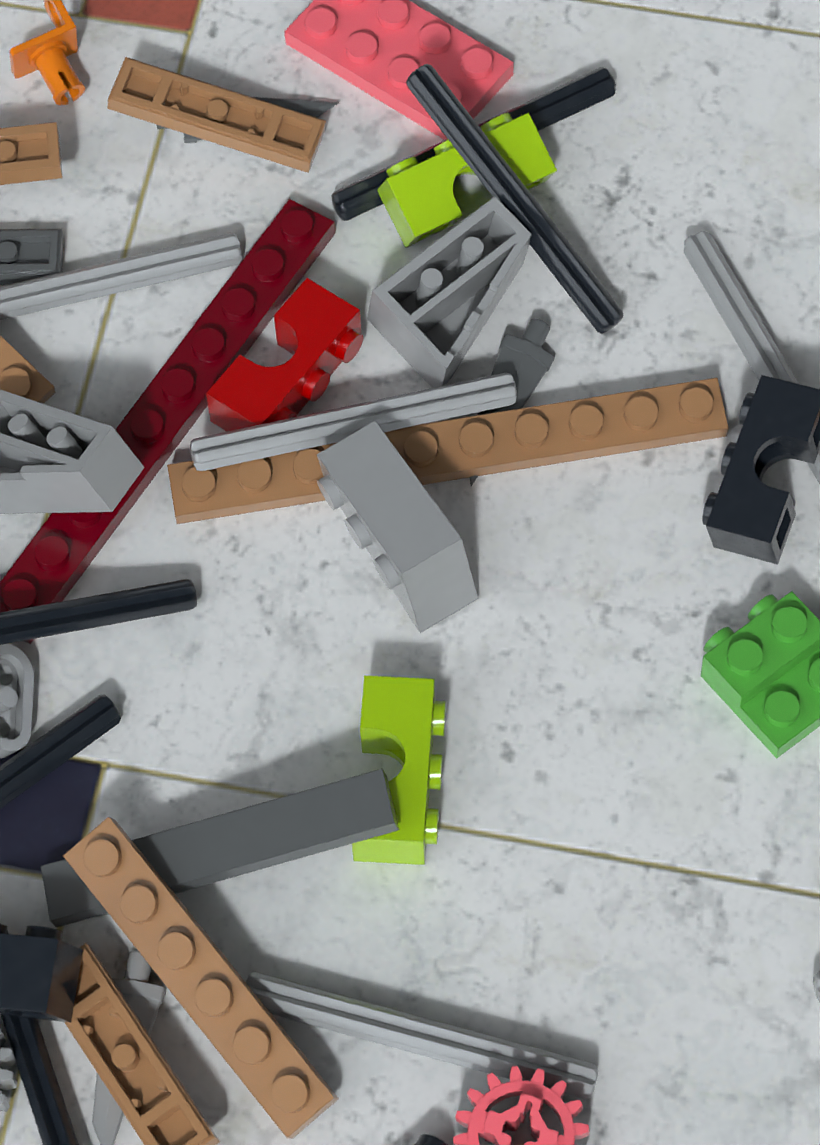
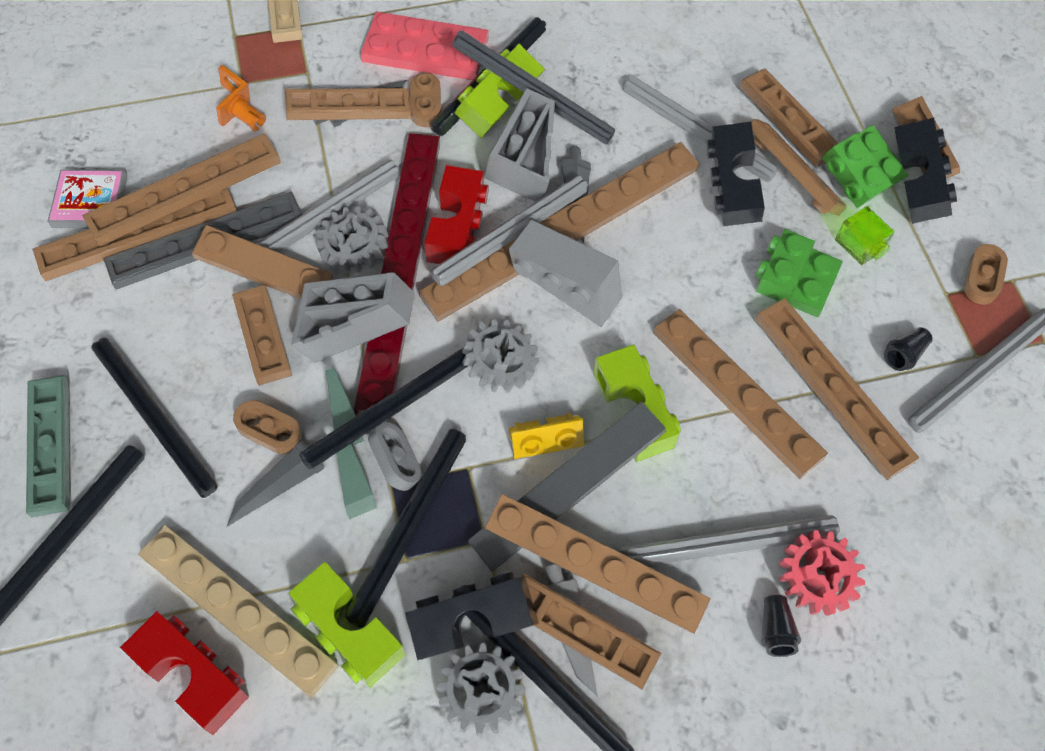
camera: 30 degrees left, 0 degrees up
(109, 343) = (352, 239): none -> light grey gear
(219, 762) = (556, 435): none -> yellow hinge
(246, 628) = (485, 357): none -> light grey gear
(348, 143) = (425, 99): none -> medium nougat plate
(571, 824) = (740, 394): none -> medium nougat plate
(723, 879) = (837, 389): none -> medium nougat plate

